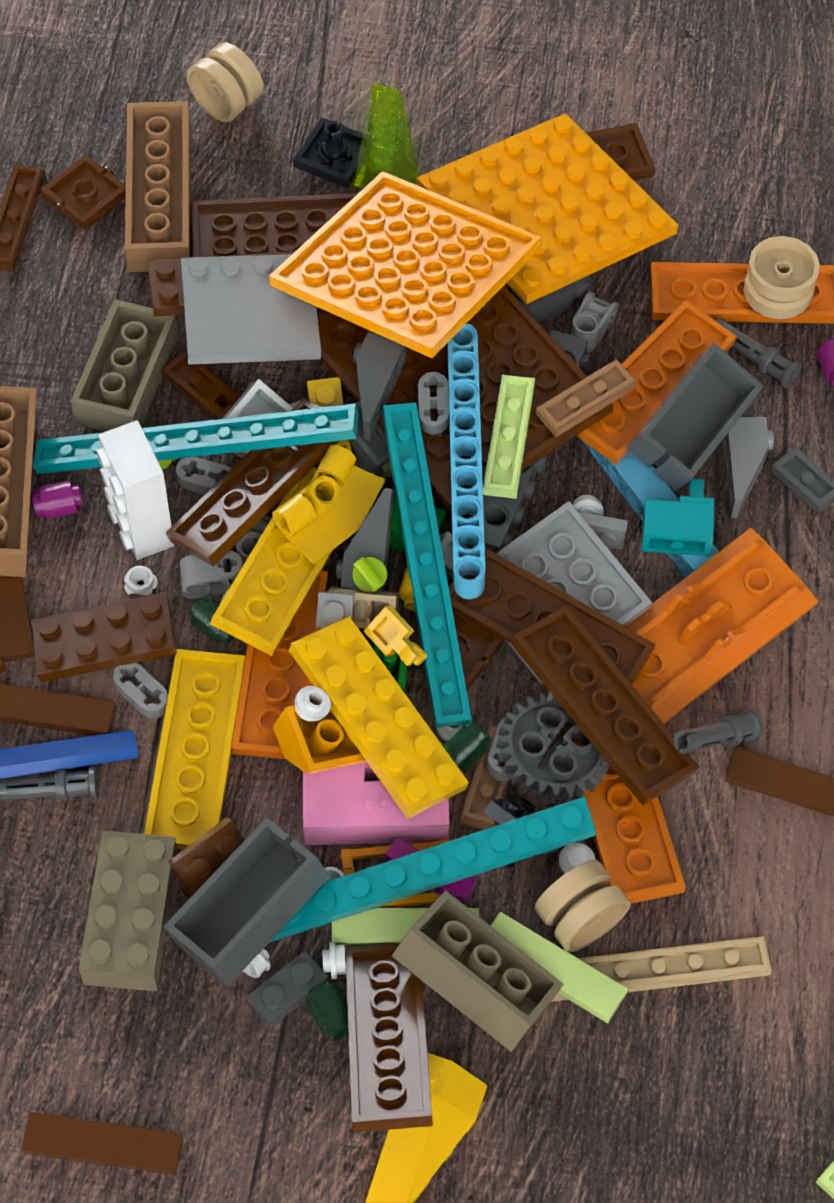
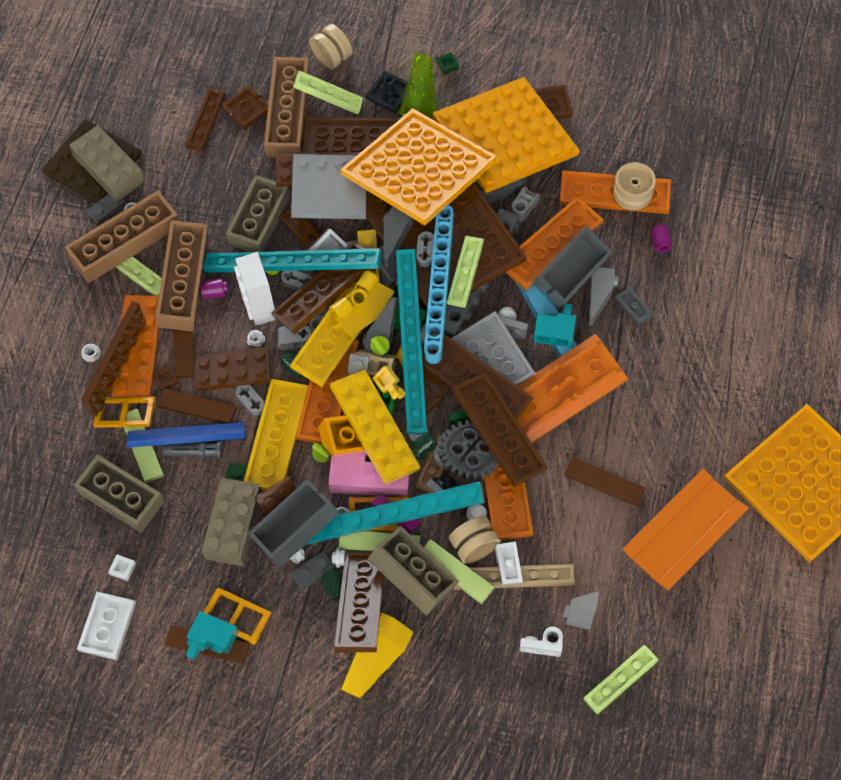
camera: 10 degrees right, 5 degrees up
(109, 1118) = (210, 632): none -> teal hinge
(128, 818) = (236, 471): none -> dark green plate
(162, 1060) = (242, 603): none -> light orange window
(228, 156) = (328, 92): none -> yellowish green tile
(281, 774) = (320, 453): none -> lime plate
(306, 709) = (335, 421): white plate -> none
(429, 101) = (447, 63): none -> dark green plate
(520, 691) = (455, 417): none -> dark green plate
(586, 398) = (511, 252): medium nougat tile -> none
(647, 939) = (508, 563): none -> white plate
(727, 731) = (567, 448): dark grey pin -> none
(733, 1091) = (544, 647): none -> white plate
(769, 358) = (623, 233): dark grey pin -> none
(796, 1017) = (581, 610): none -> light grey slope

